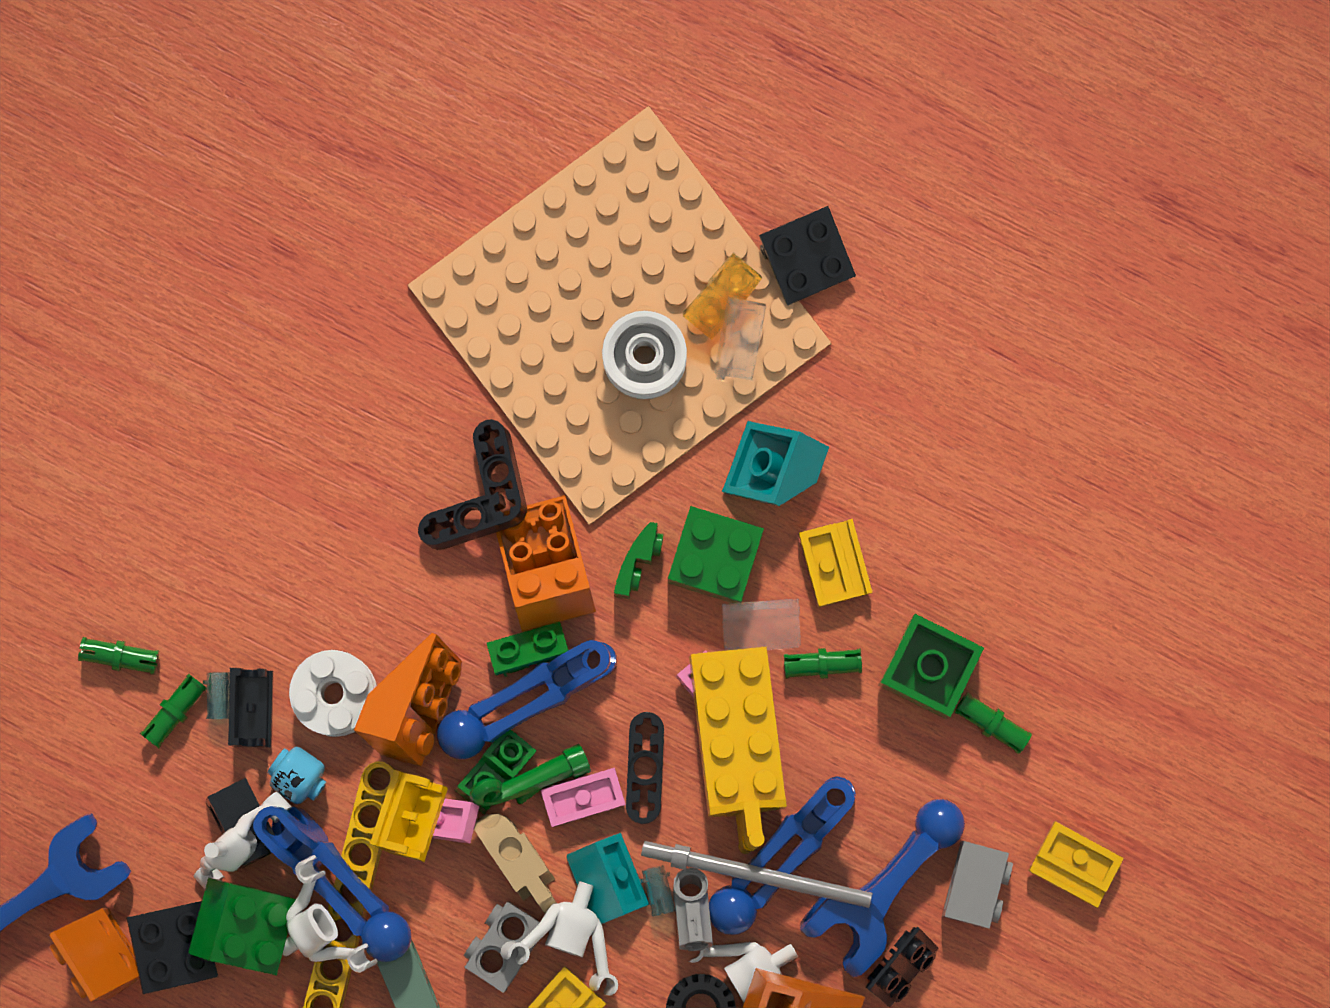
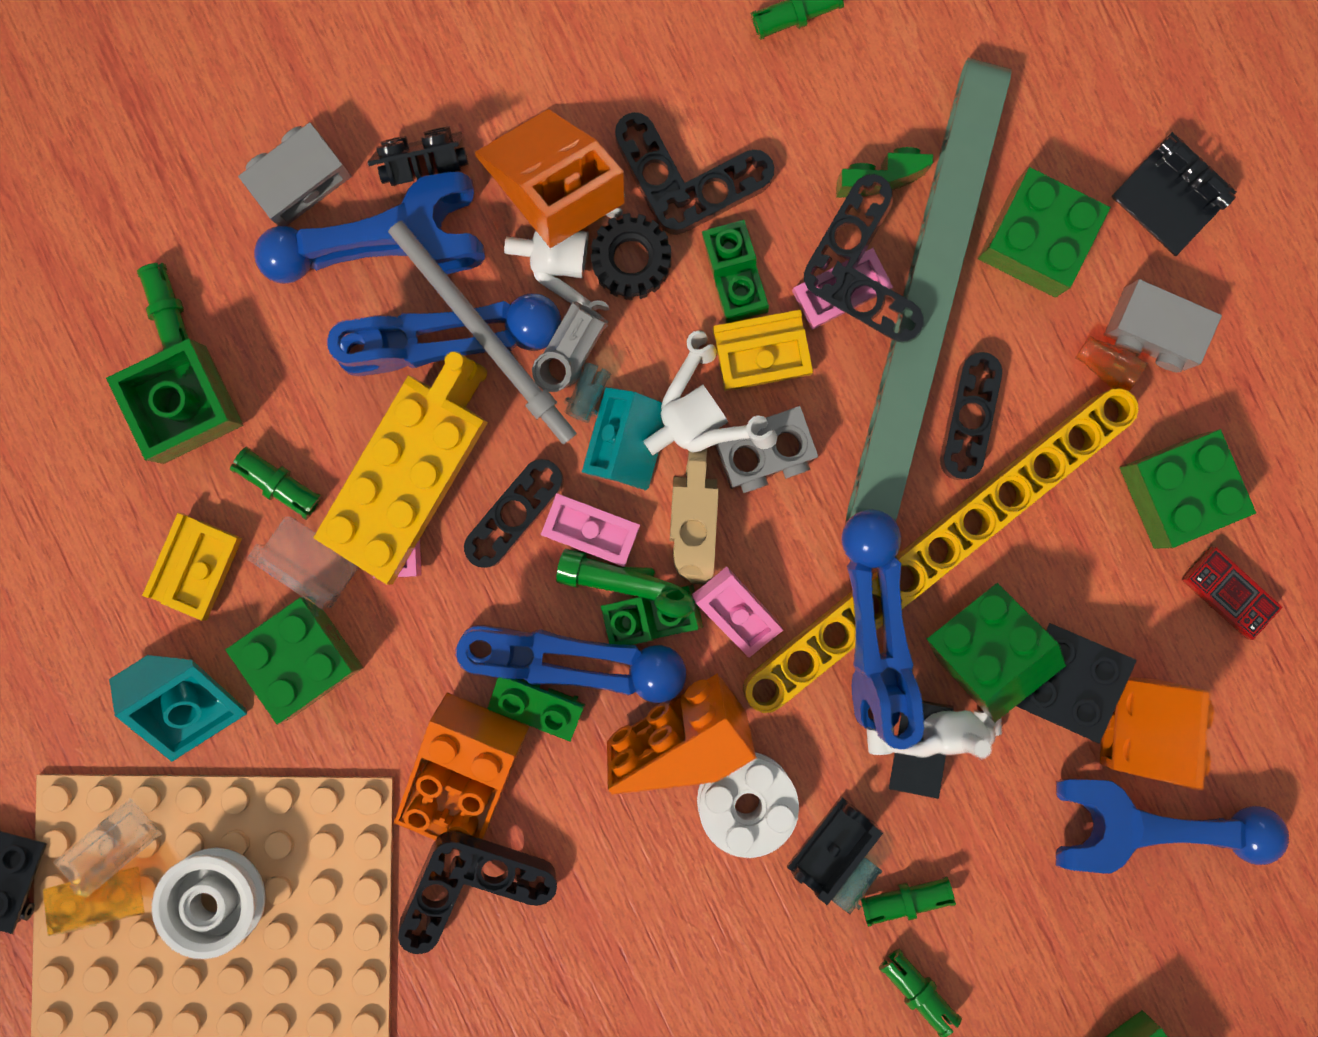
camera: 145 degrees left, 5 degrees up
(297, 775) = (838, 753): medium azure head -> none
(315, 927) = (931, 598): white piece -> none
(408, 816) = (764, 636): yellow hinge -> none
(642, 550) = (362, 714): green slope -> none
(1075, 864) = (191, 125): yellow plate -> none

